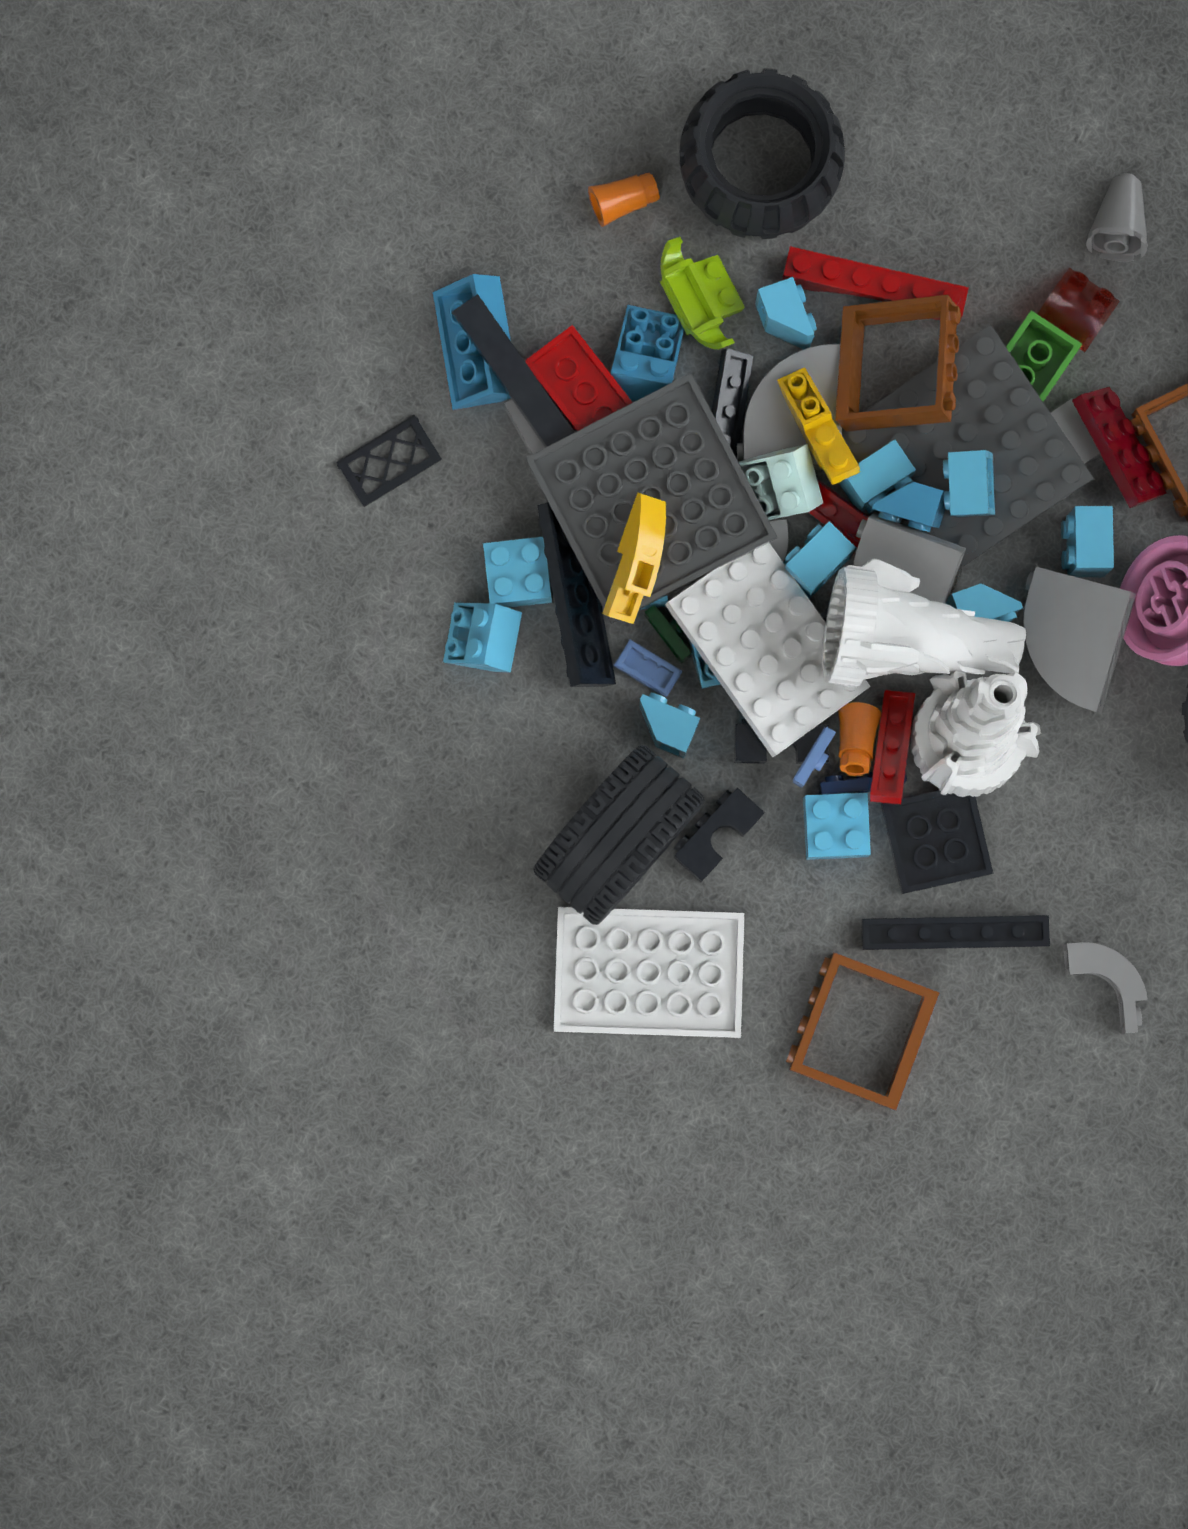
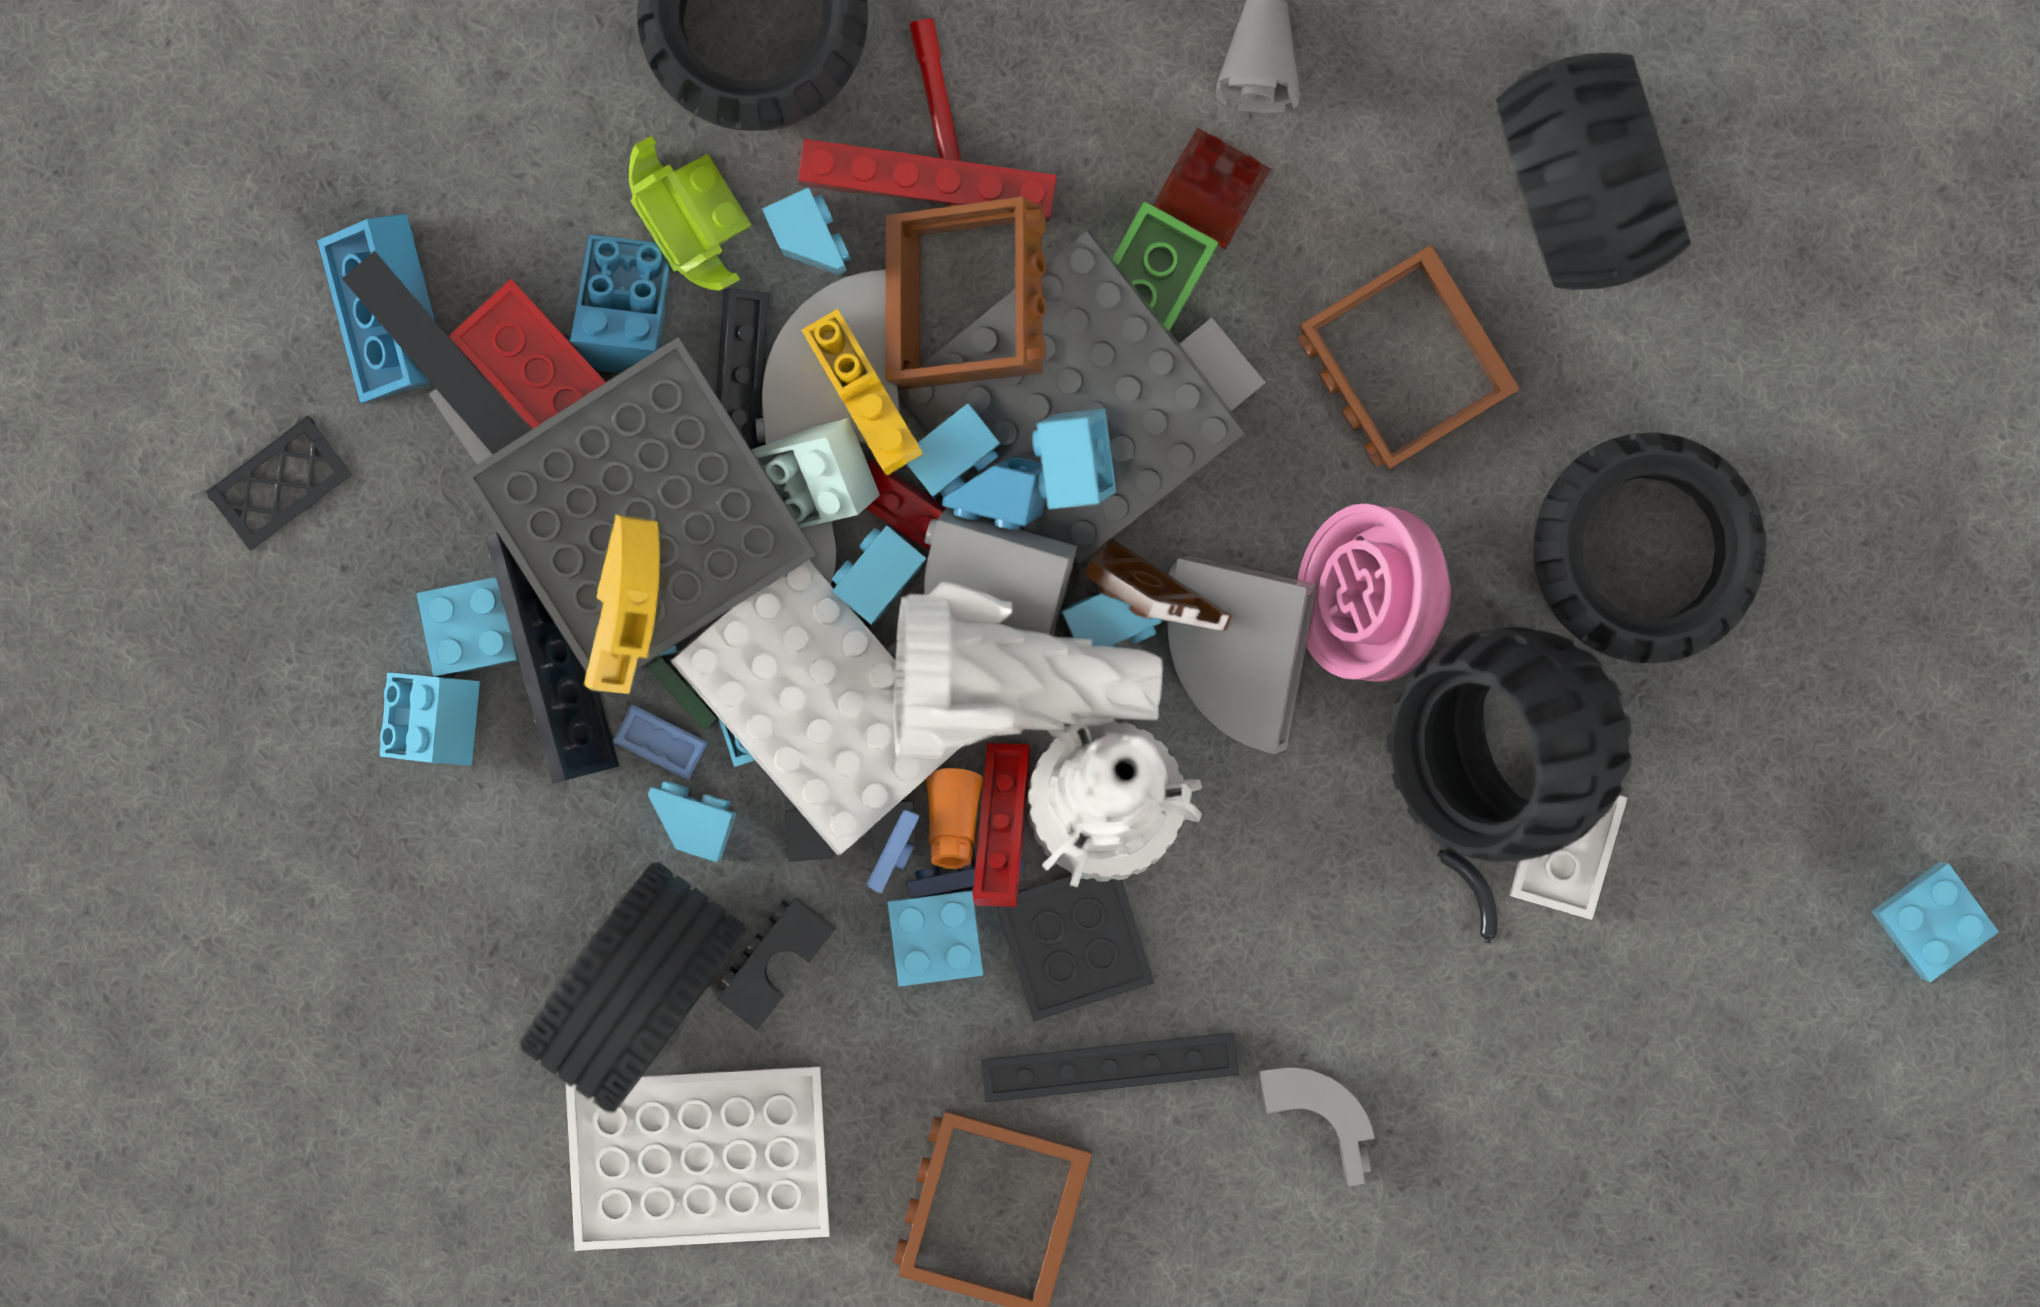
camera: 10 degrees left, 5 degrees up
(622, 197) = (568, 85): orange plant -> none
(880, 200) = (928, 56): none -> red piece
(1017, 586) = (1151, 590): none -> reddish brown wing
(1088, 541) = (1248, 516): medium azure brick -> none
(1119, 446) = (1282, 379): dark red plate -> none

